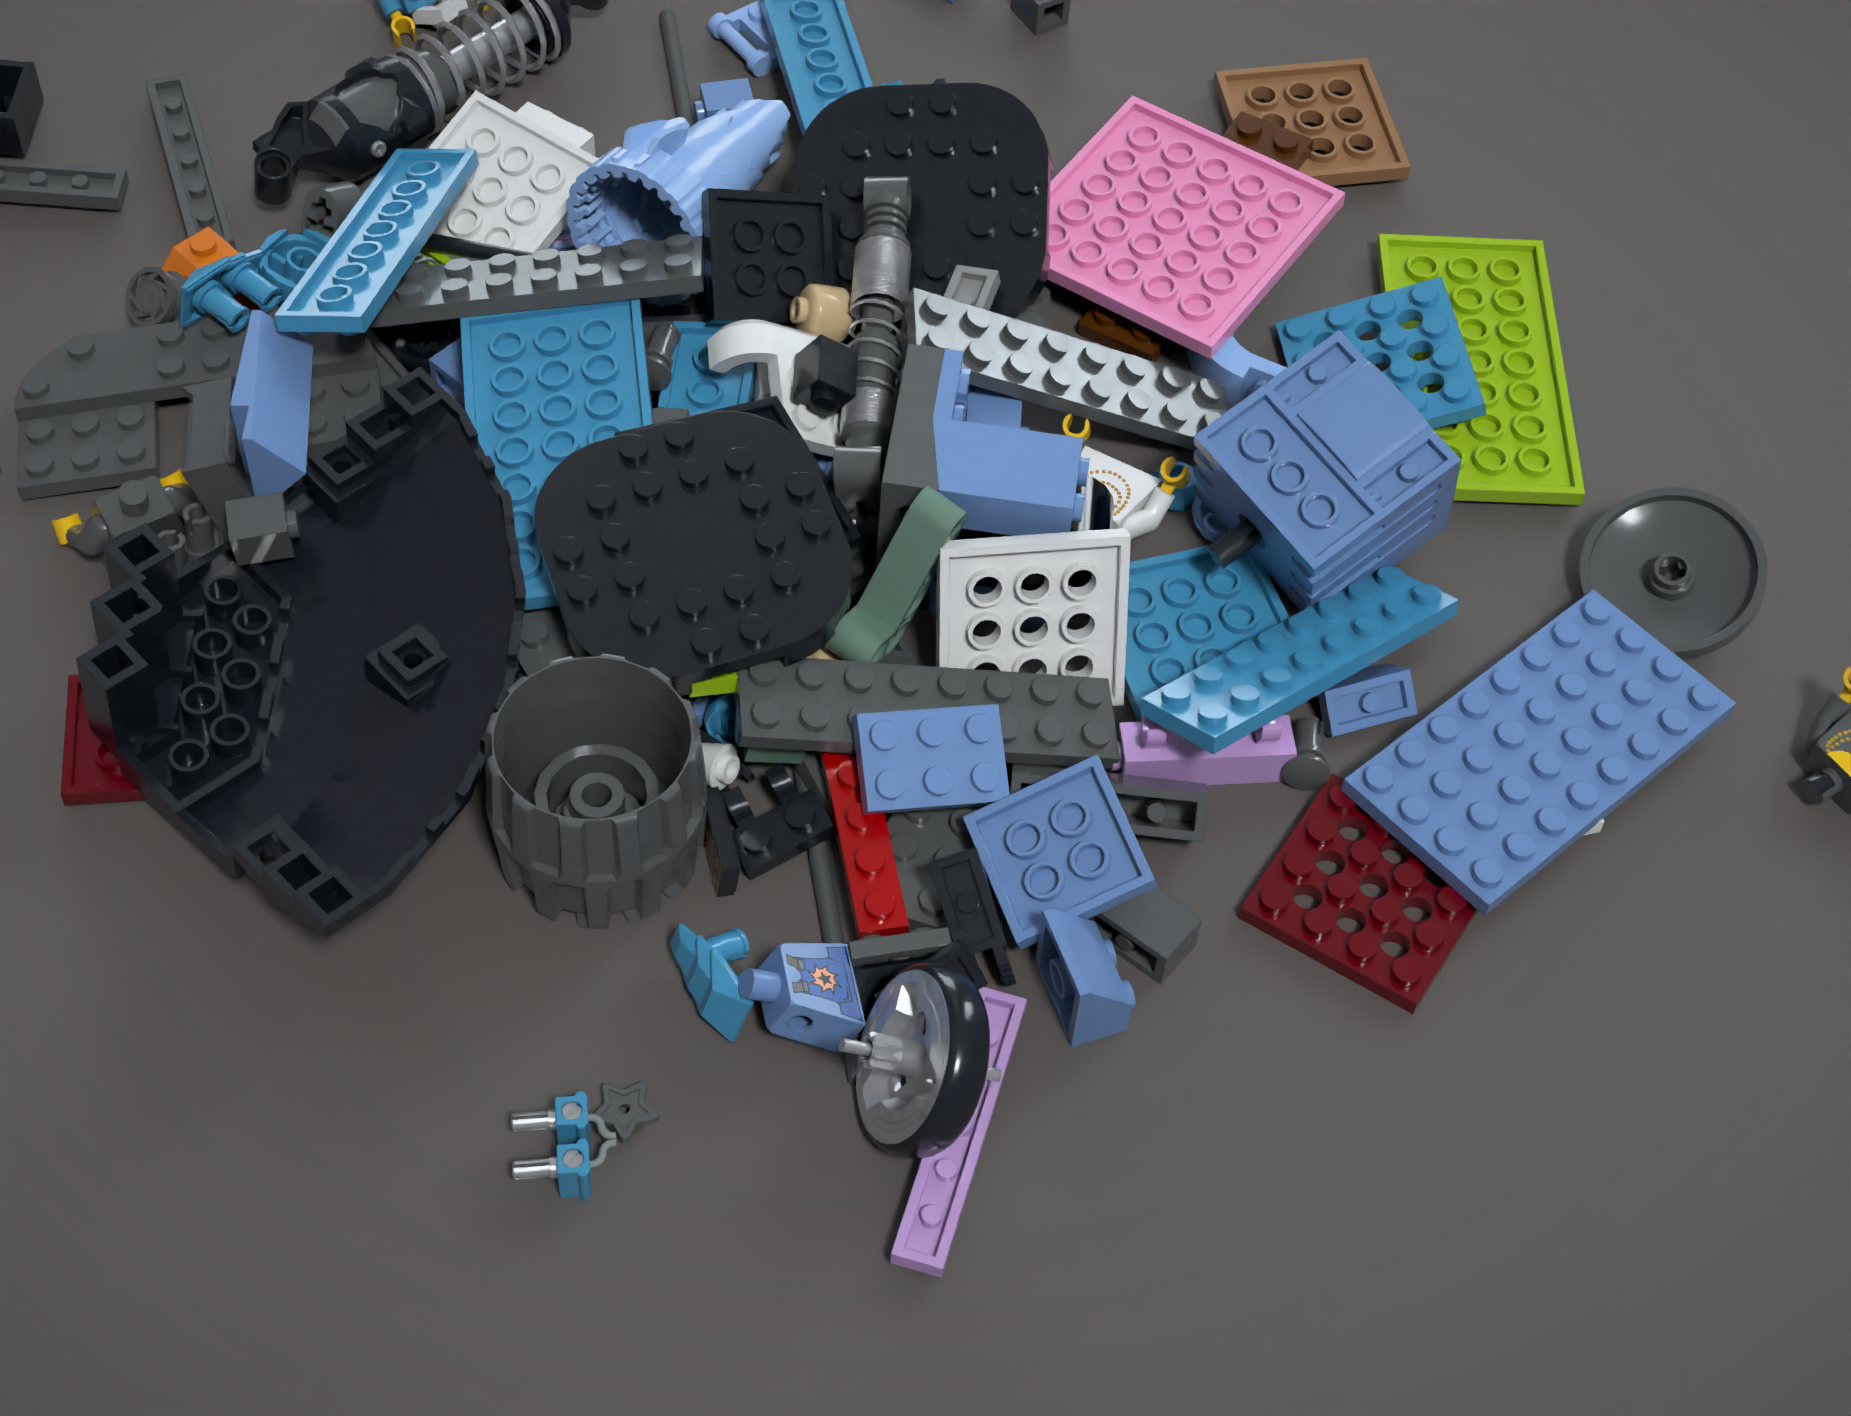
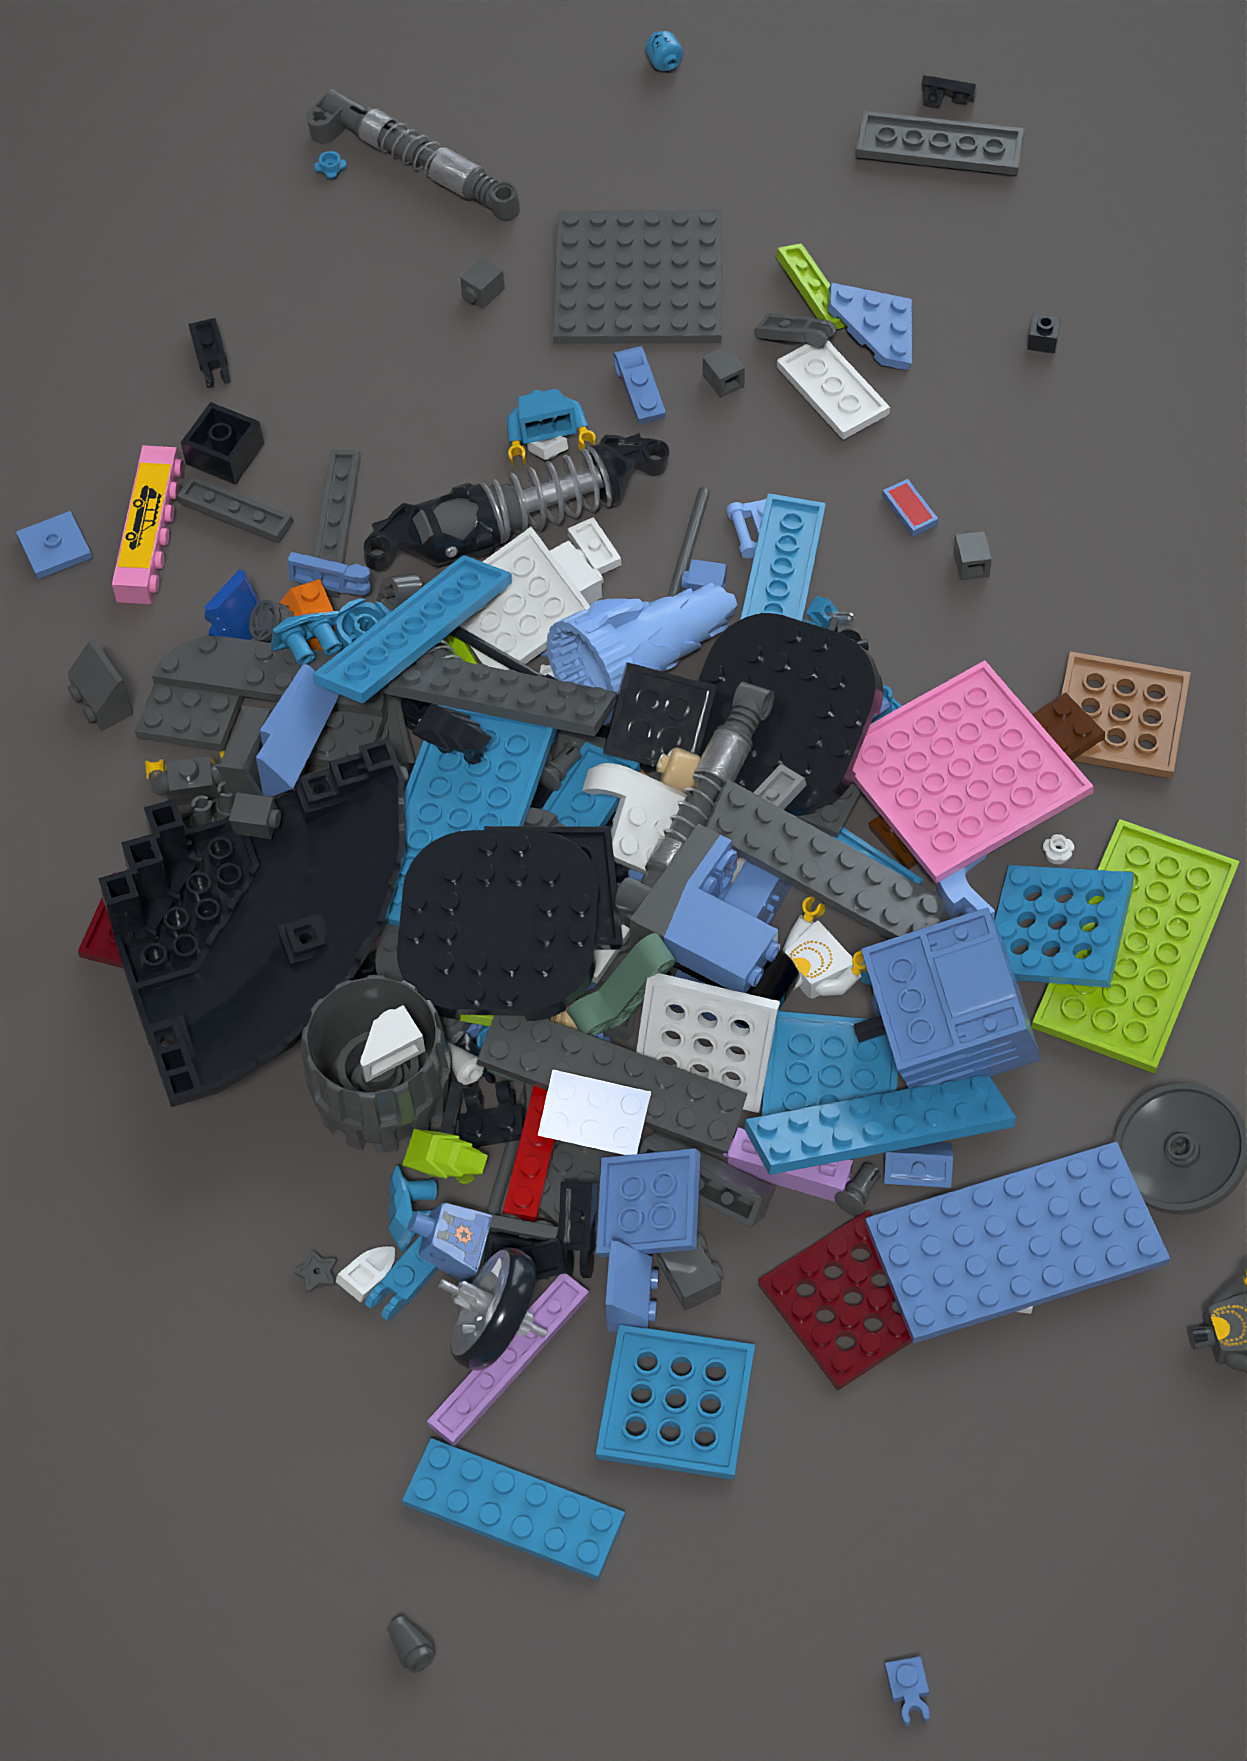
camera: 30 degrees right, 5 degrees up
(97, 291) = (232, 608): none -> blue slope
(225, 215) = (332, 574): none -> medium blue hinge
(509, 330) = (452, 732): none -> black connector
(561, 101) = (595, 545): none -> white plate
(573, 1160) = (281, 1272): piece -> none
(621, 742) = (390, 1043): none -> white slope
(699, 1084) = (366, 1271): none -> white plate
(740, 889) = (444, 1156): none -> lime connector
(756, 1075) = (402, 1281): none -> dark azure hinge
(825, 375) = (649, 822): black brick -> none
(1069, 1331) = (514, 1509): none -> dark azure plate
(1217, 1176) = (684, 1453): none -> dark azure piece
(1321, 290) = (1055, 855): none -> white plate
(1720, 1357) = (908, 1684): none -> medium blue plate

